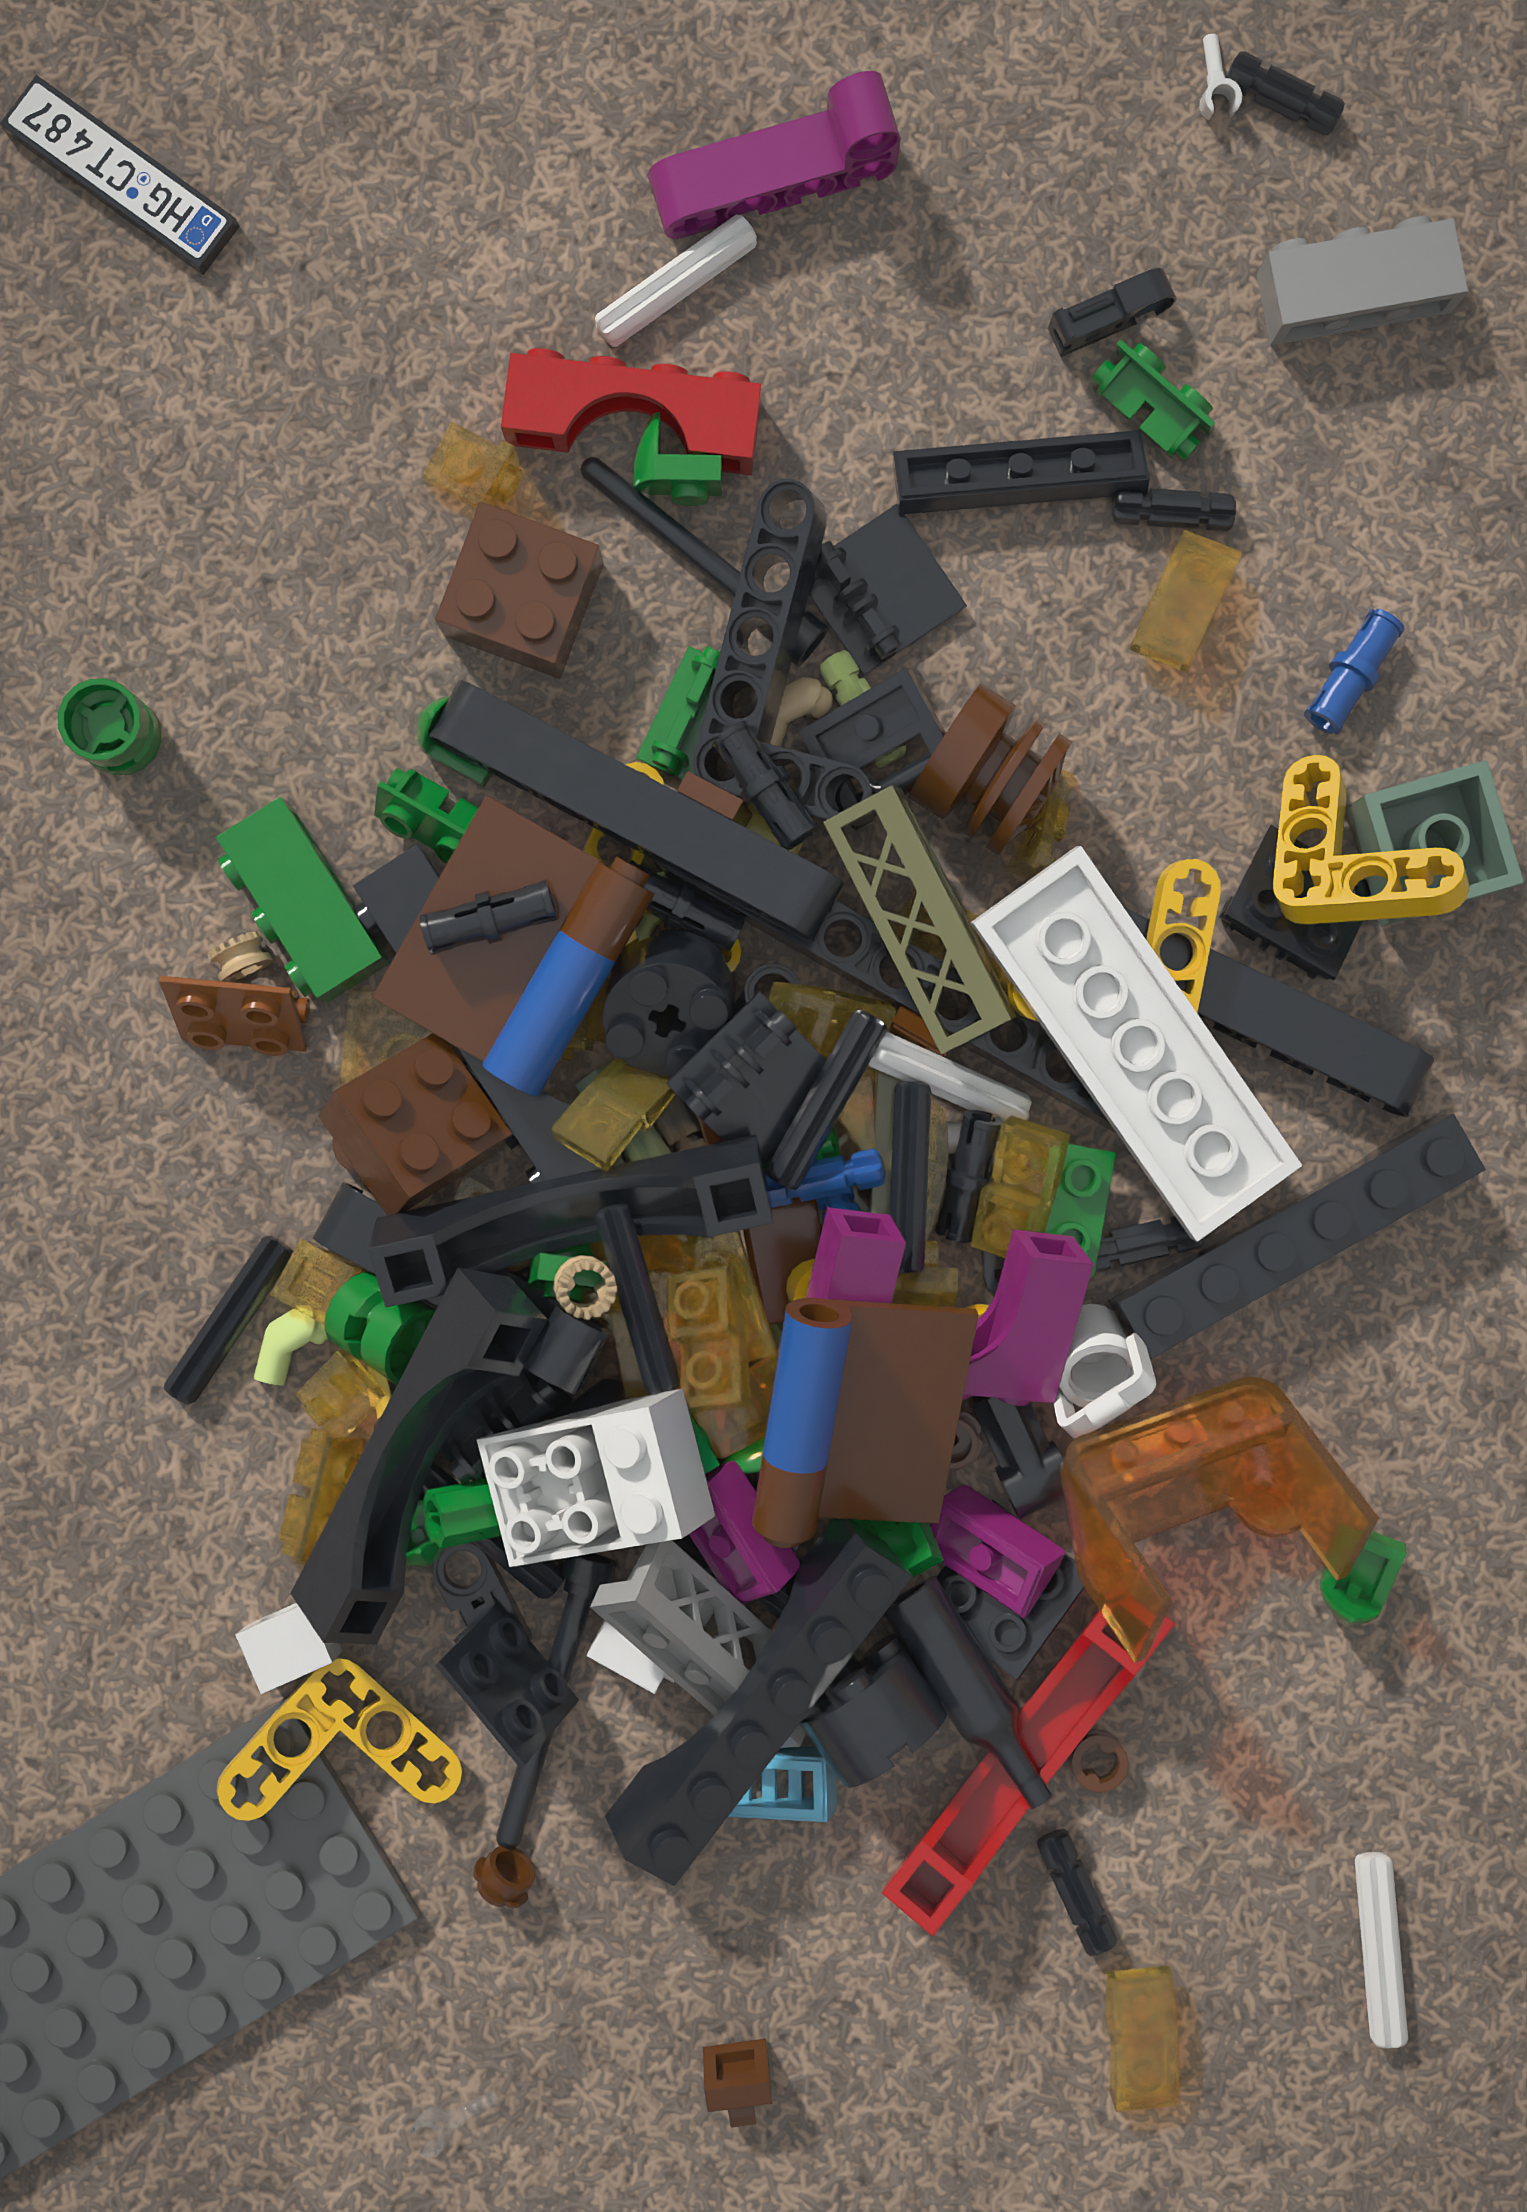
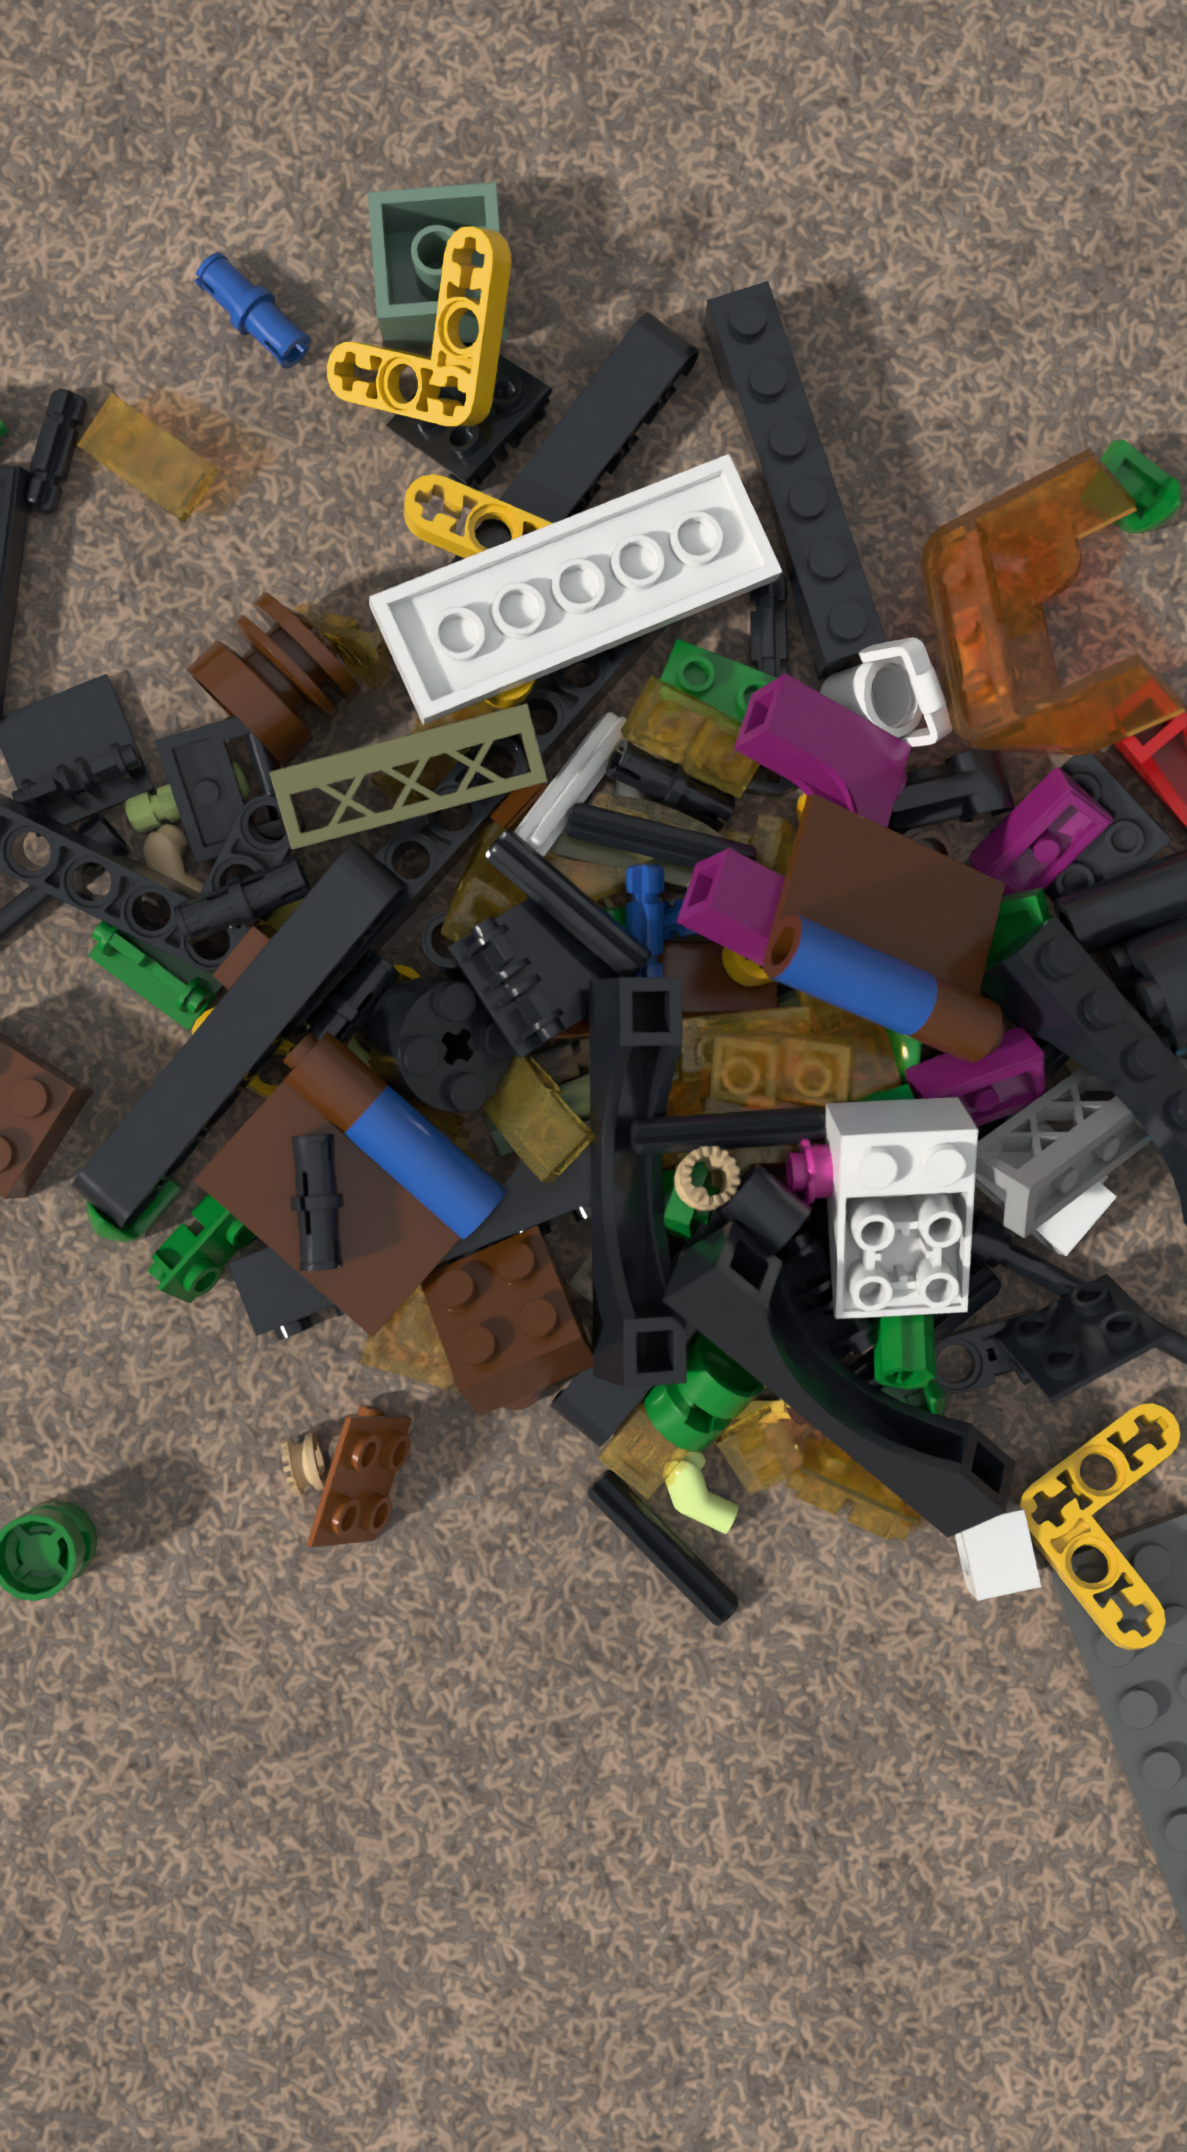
camera: 75 degrees left, 0 degrees up
(300, 901) = (260, 1393): green brick -> none
(613, 1386) = (810, 1171): none -> dark pink plate

